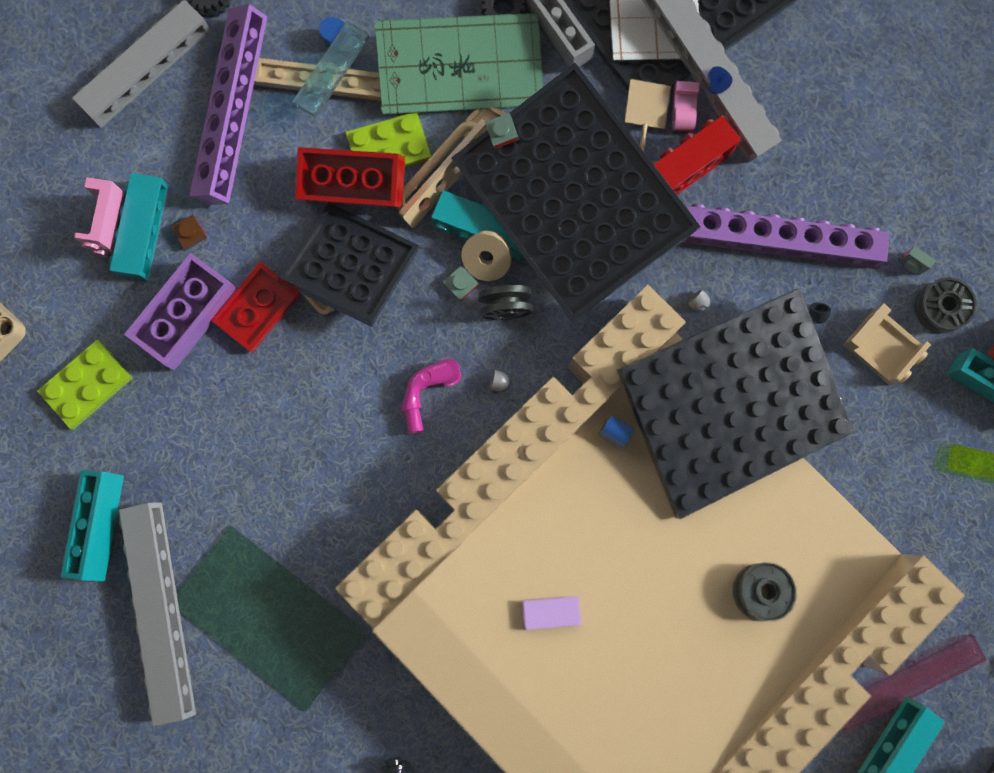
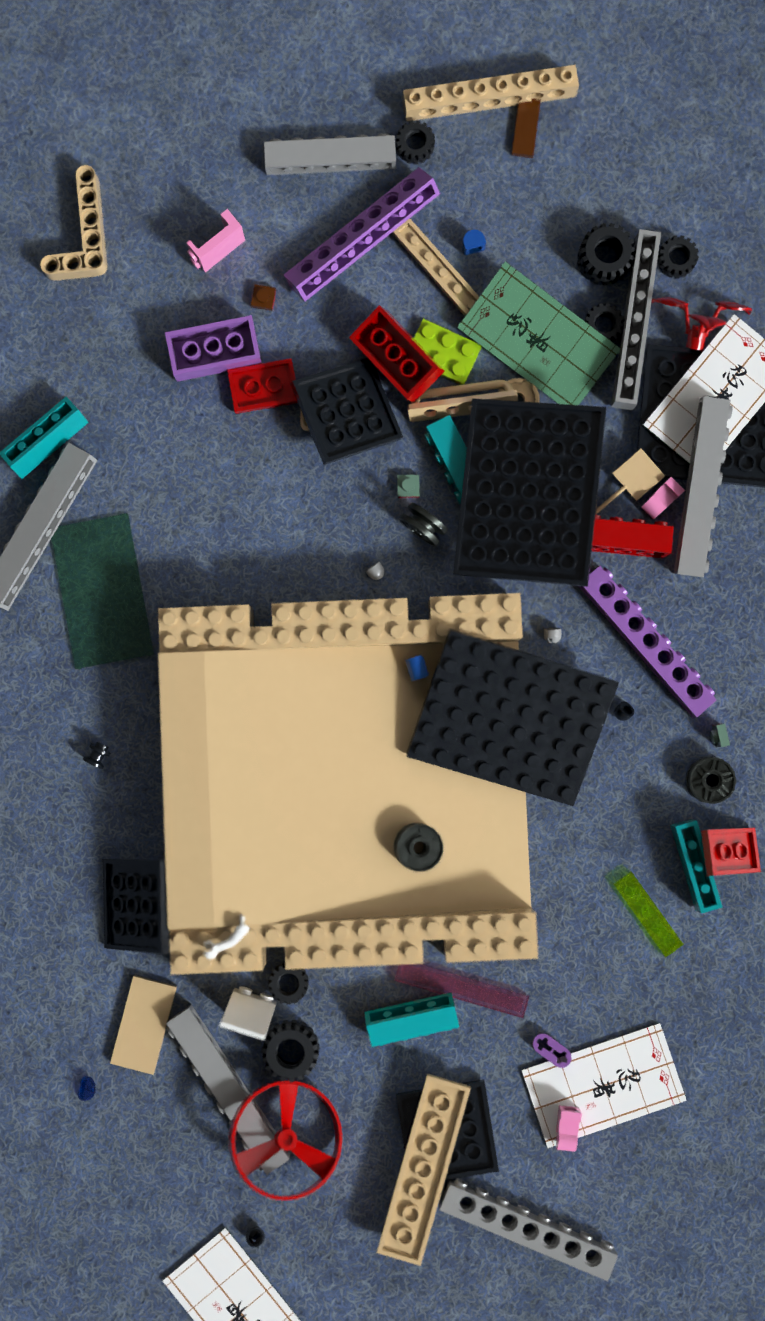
camera: 45 degrees right, 5 degrees up
(85, 384) = (113, 341): lime plate -> none
(138, 227) = (234, 266): teal brick -> none
(331, 69) = (449, 268): clear light blue plate -> none
(444, 372) = (344, 533): dark pink piece -> none
(481, 268) = (429, 484): tan tile -> none
(502, 130) = (519, 410): sand green plate -> none
(551, 613) = (274, 740): lavender tile -> none
(719, 80) = (696, 501): clear blue piece -> none
(886, 346) = (647, 771): tan panel -> none

